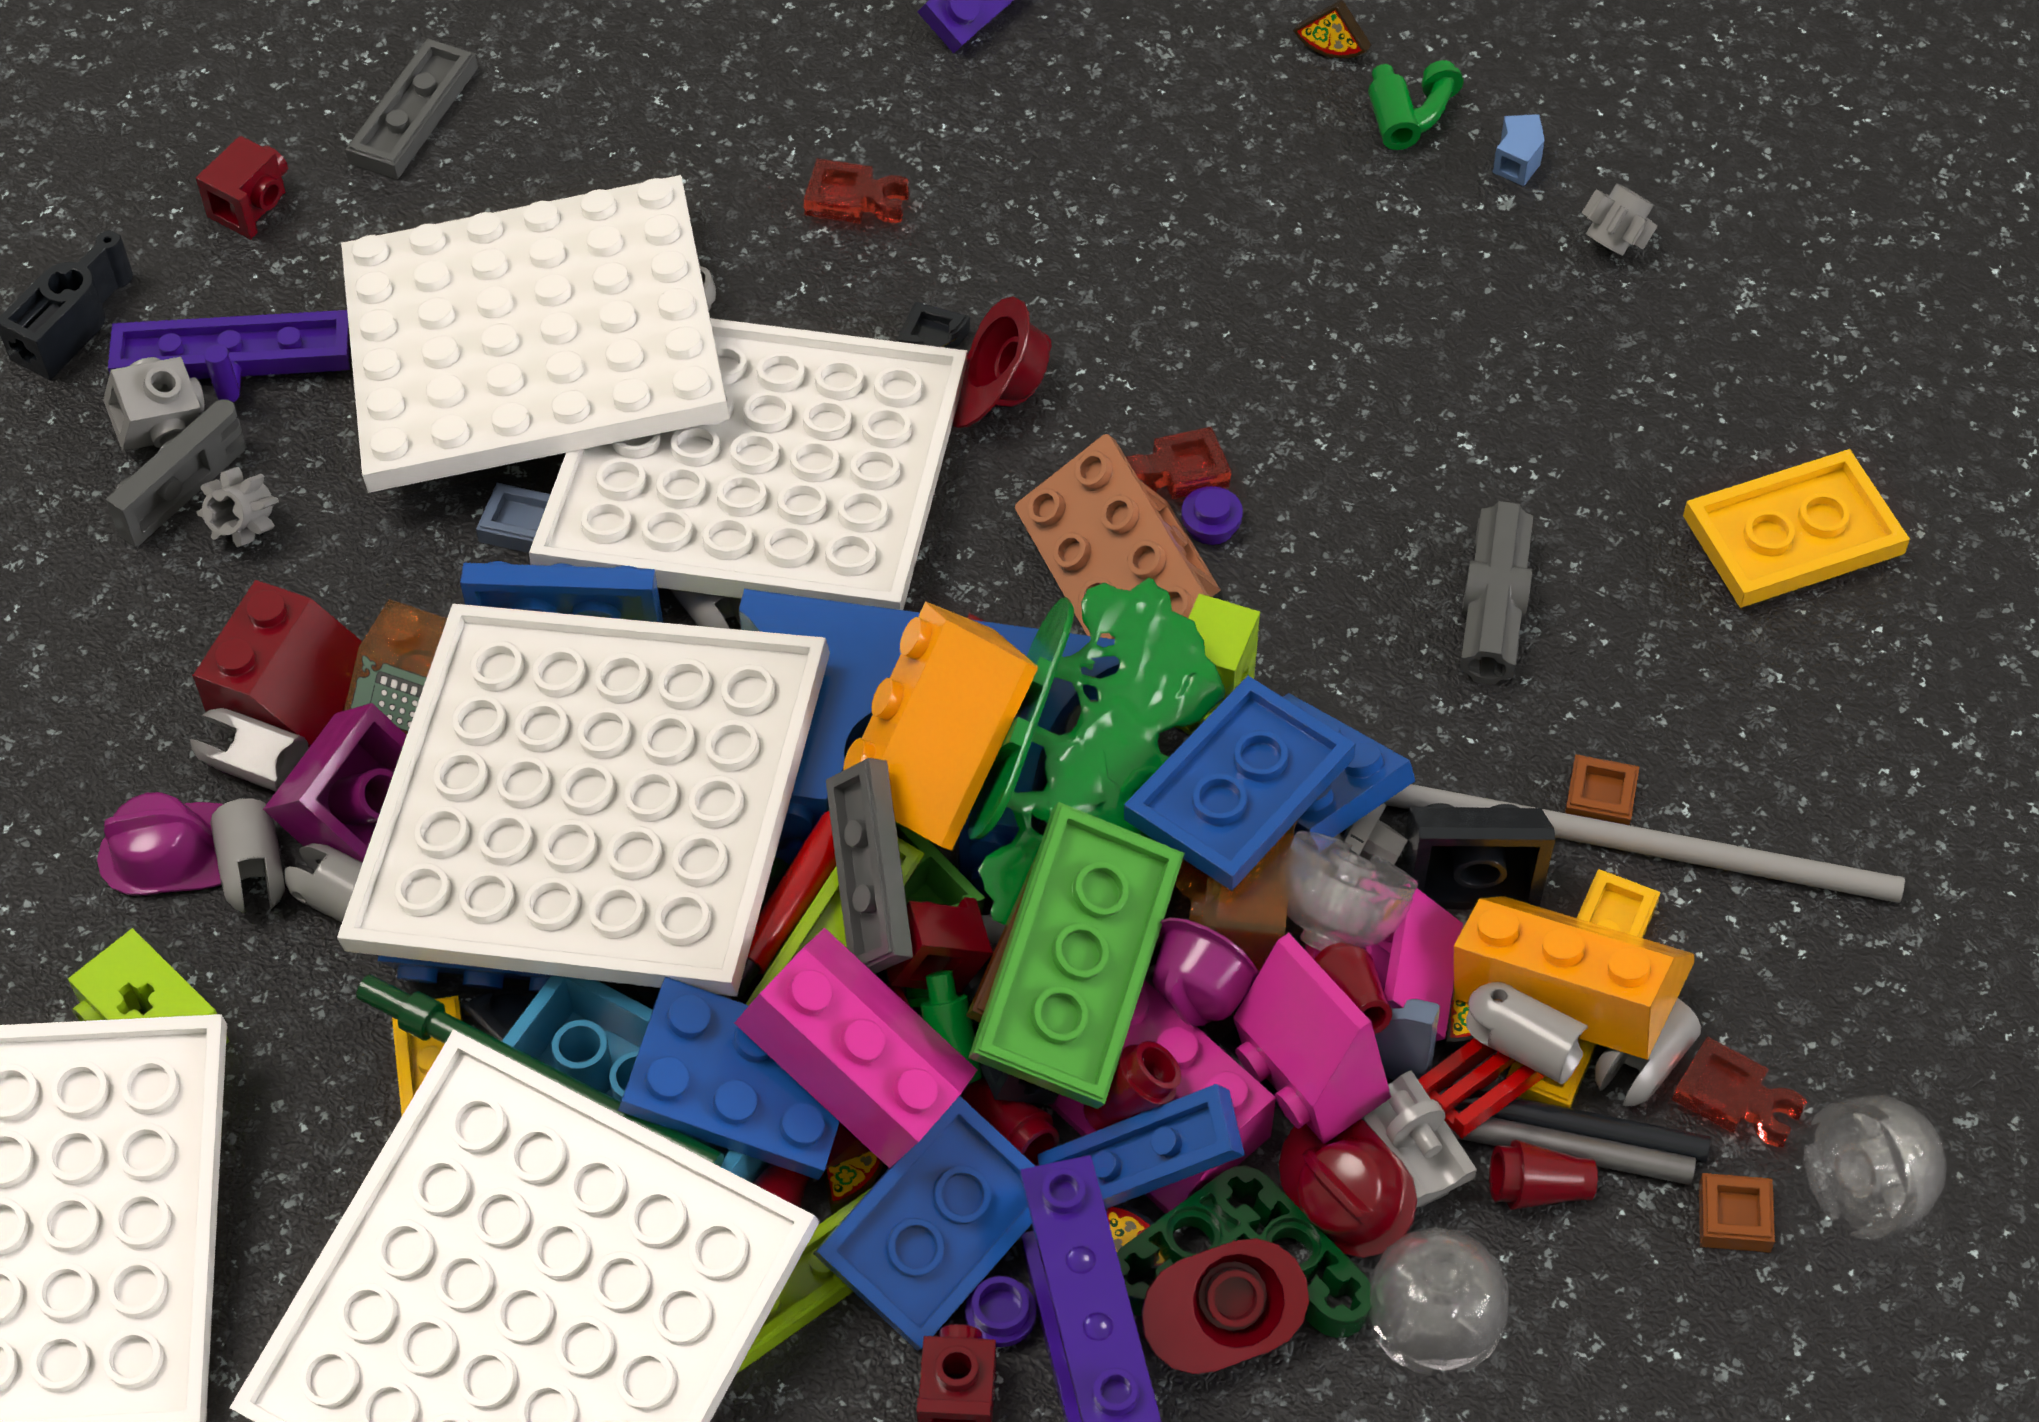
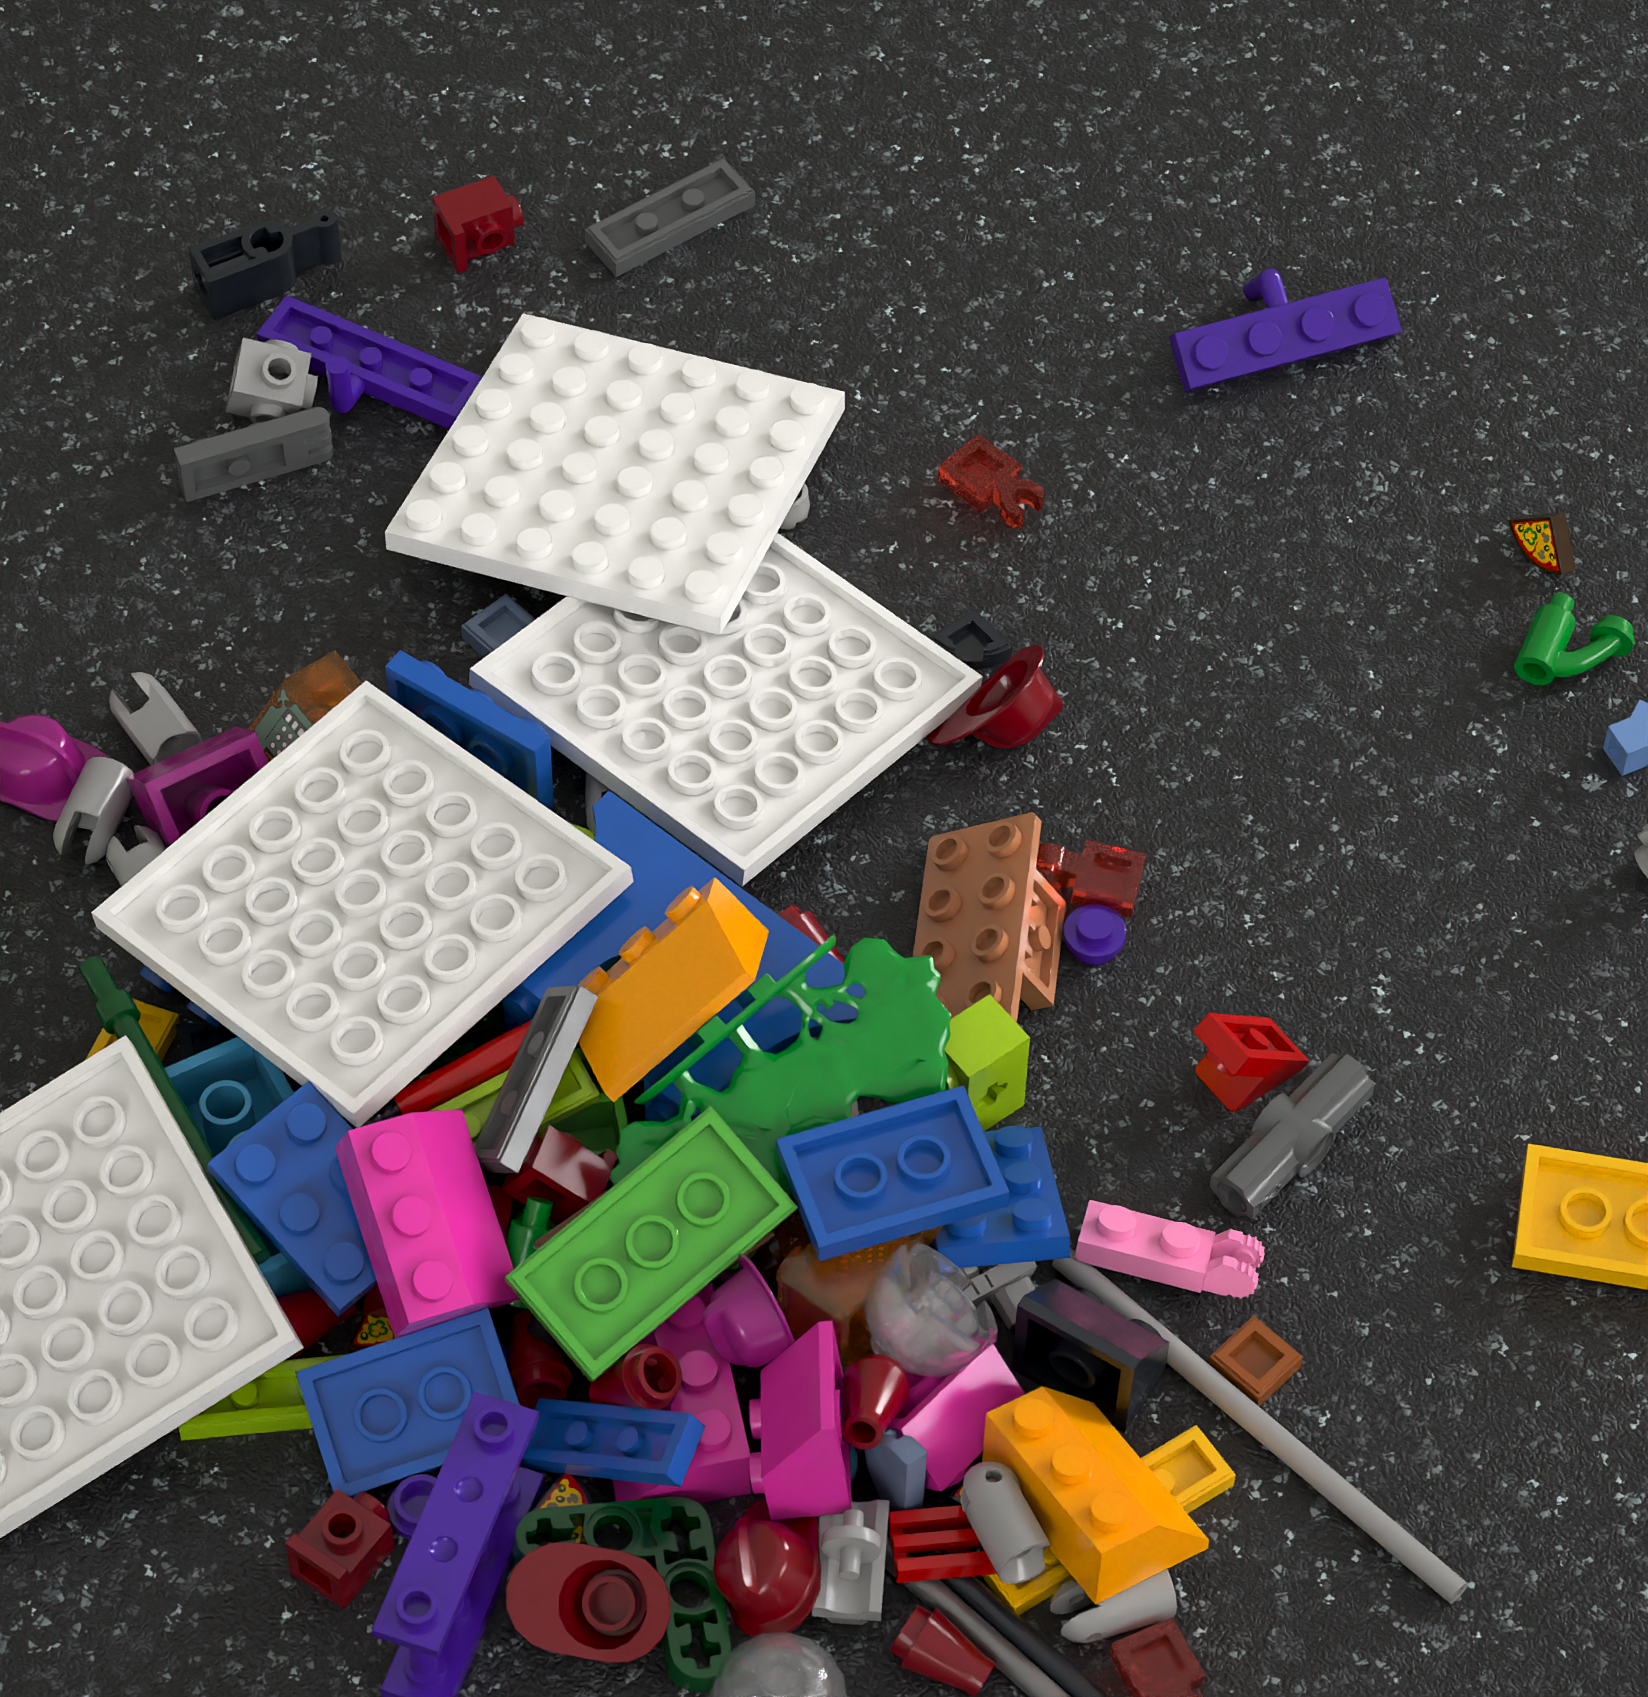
camera: 30 degrees right, 0 degrees up
(237, 506) = (279, 507): light grey gear -> none
(280, 662) = (219, 659): dark red slope -> none
(1410, 554) = (1245, 1057): none -> red slope
(1475, 736) = (1169, 1251): none -> bright pink hinge

